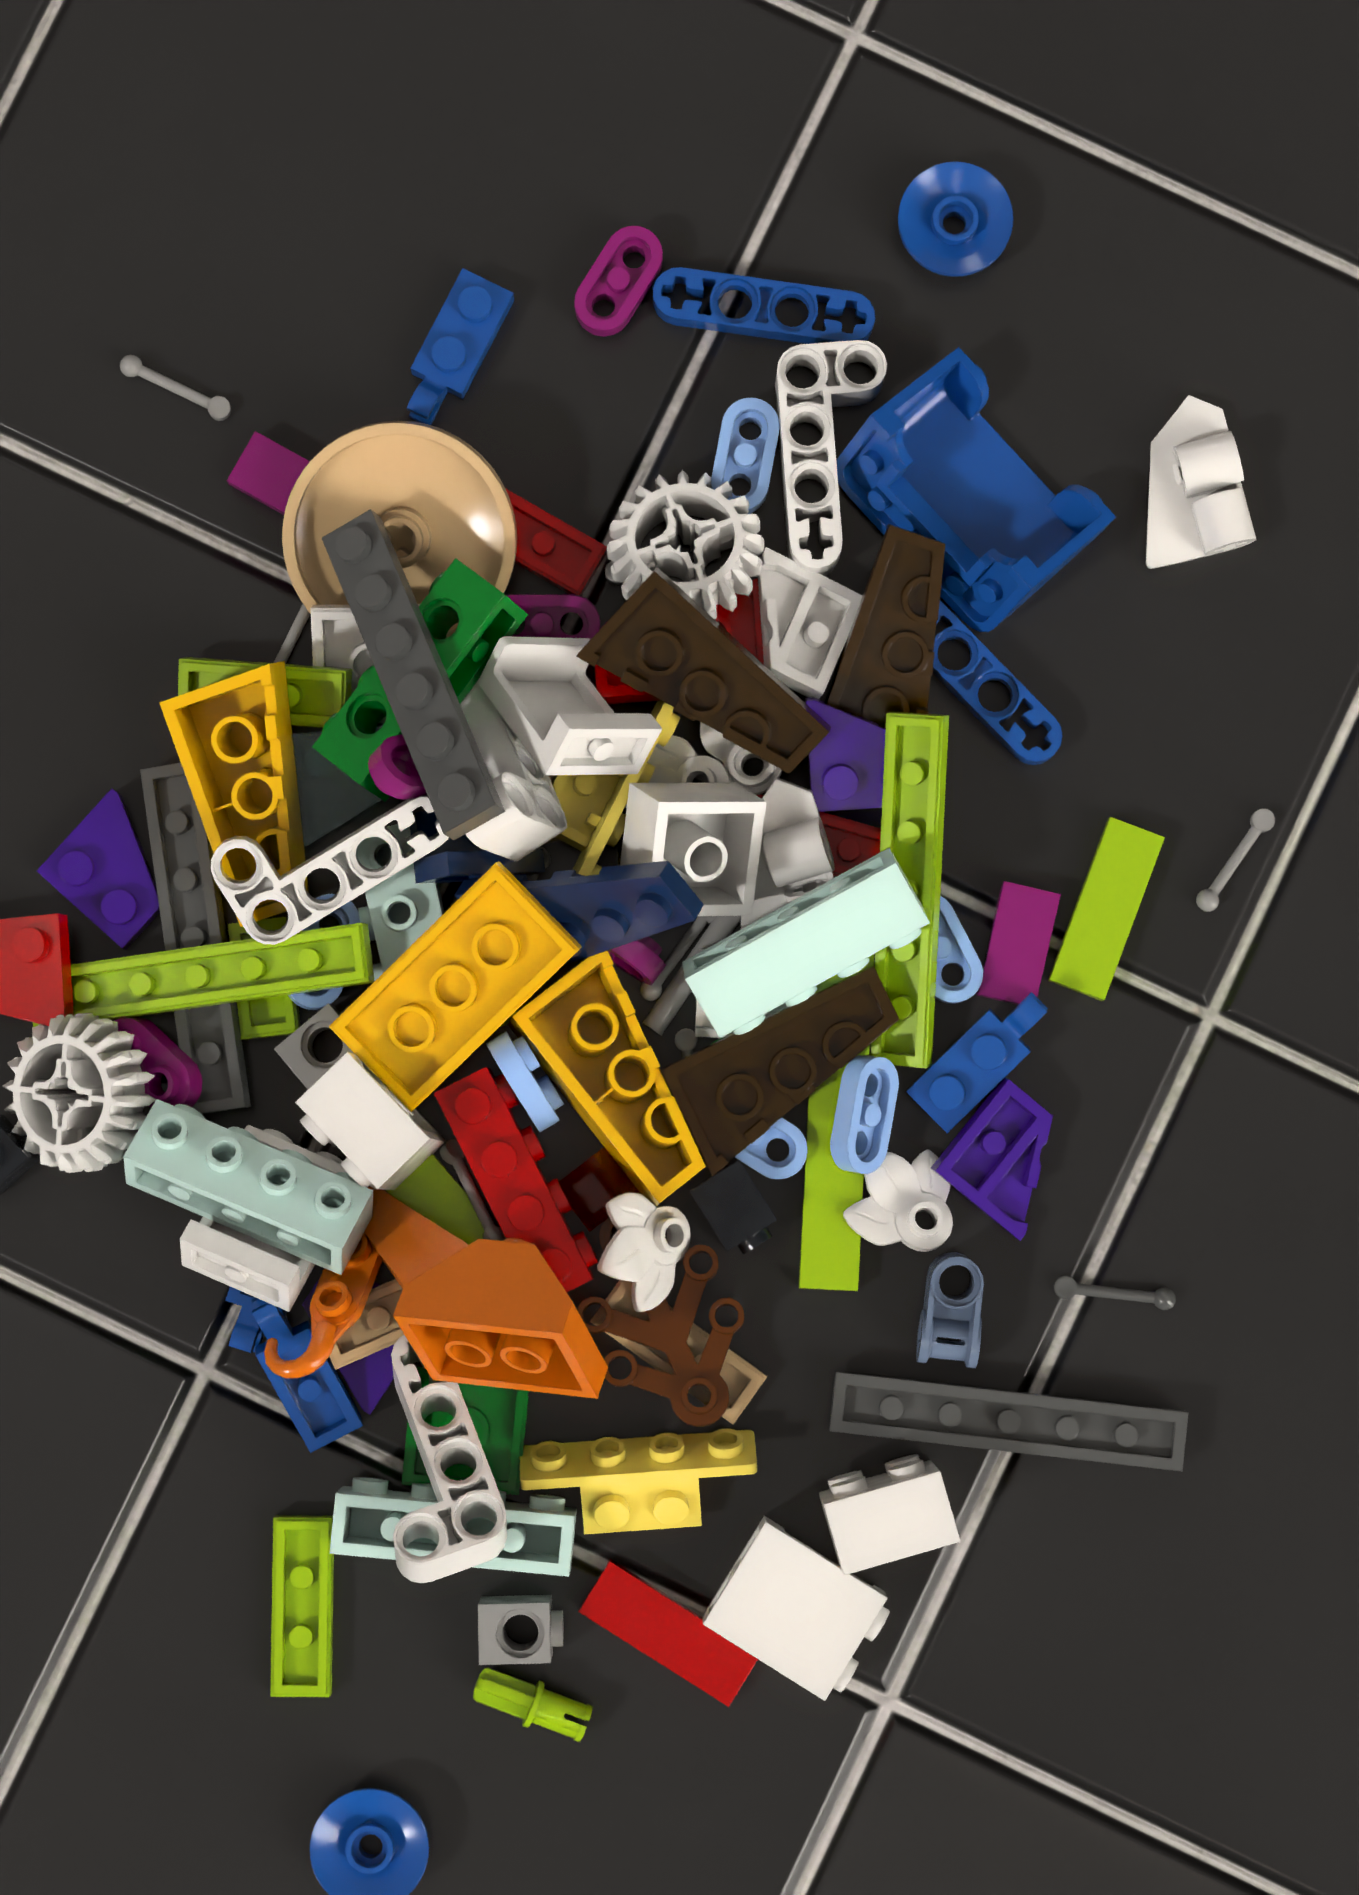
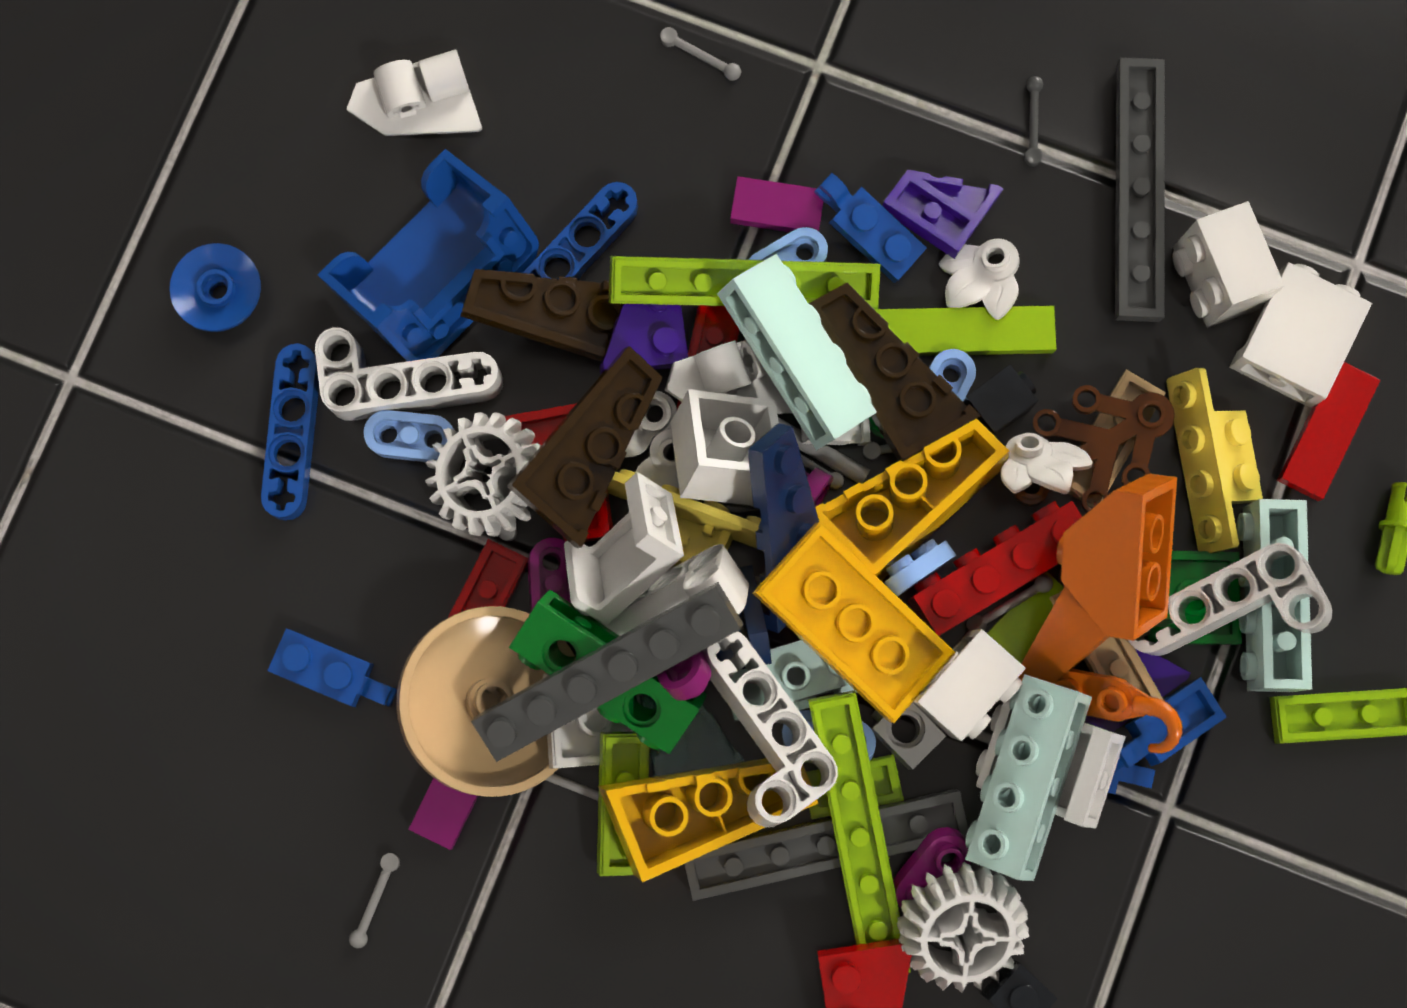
camera: 90 degrees left, 5 degrees down
(106, 872) = (777, 923): dark purple wing -> none
(498, 1648) = (1329, 557): light grey brick -> none
(594, 1185) = (994, 509): clear red slope -> none
(617, 283) = (274, 546): magenta plate -> none
(802, 623) = (541, 380): white wing -> none
(864, 1114) = (921, 305): light blue plate -> none
(951, 1315) = (1070, 232): sand blue piece -> none
(1106, 909) = (745, 144): lime tile -> none

